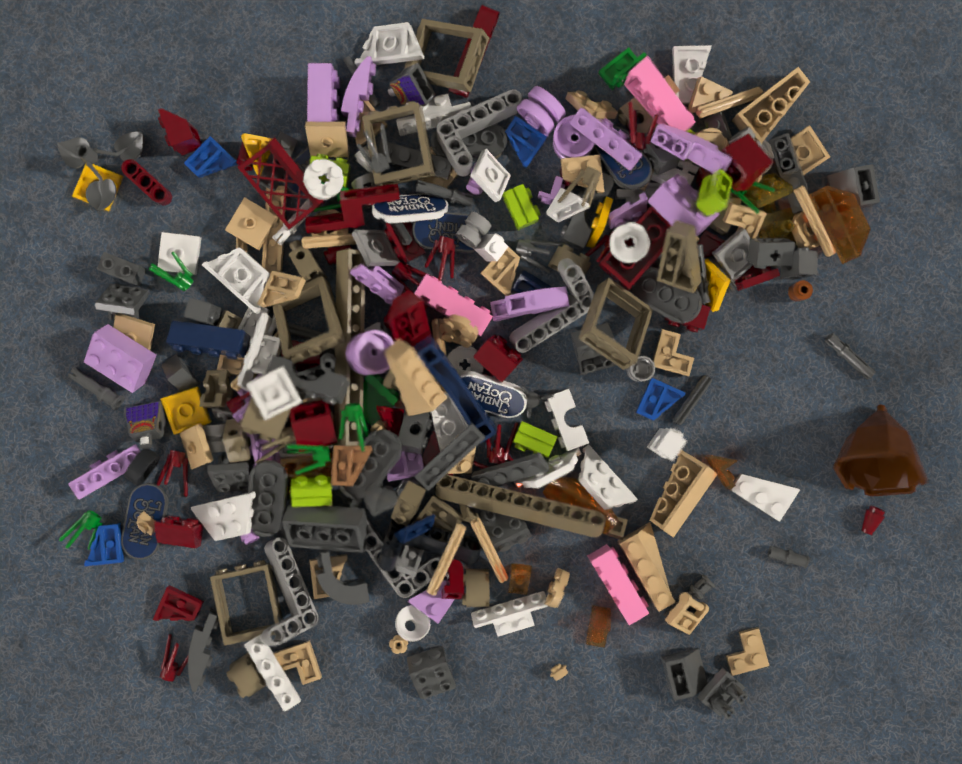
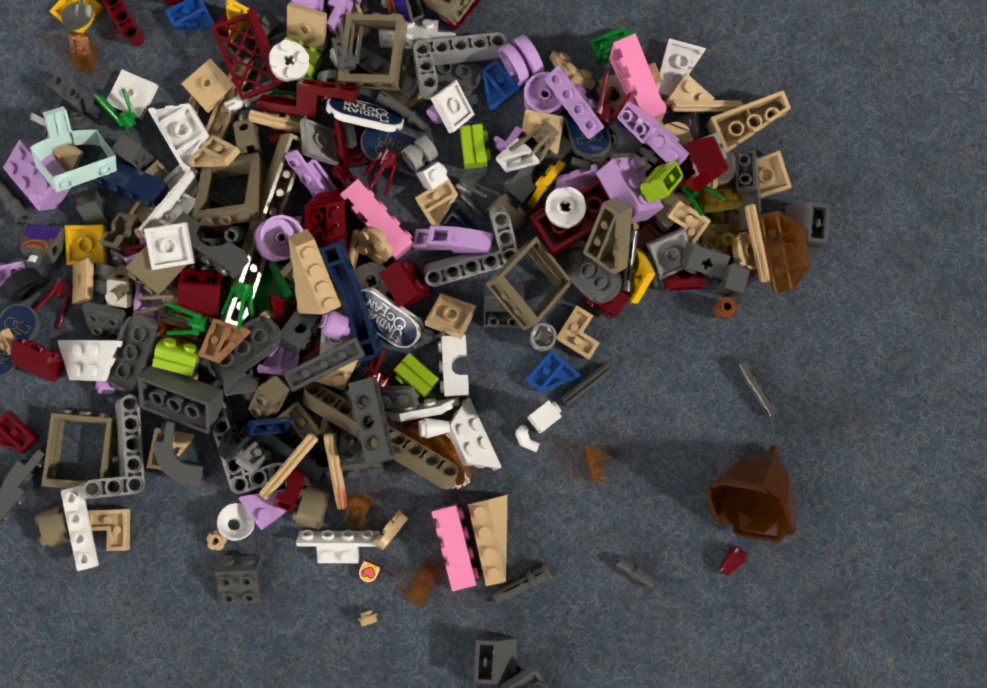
camera: 20 degrees right, 5 degrees down
(119, 227) = (82, 52): none -> clear orange slope
(130, 314) = (61, 134): none -> light aqua piece
(446, 417) = (334, 325): none -> lavender head
(520, 527) = (384, 450): none -> dark grey brick
(546, 629) = (369, 571): none -> tile
(549, 374) = (450, 315): none -> tan plate
(568, 485) = (433, 427): none -> white cone
(619, 529) = (472, 490): dark tan plate -> none
(650, 468) = (524, 440): none -> white arm
(682, 492) = (546, 474): tan wedge -> none
(682, 618) = (510, 603): tan plate -> none
(752, 657) = (570, 664): tan plate -> none
(766, 495) = (632, 503): white wing -> none

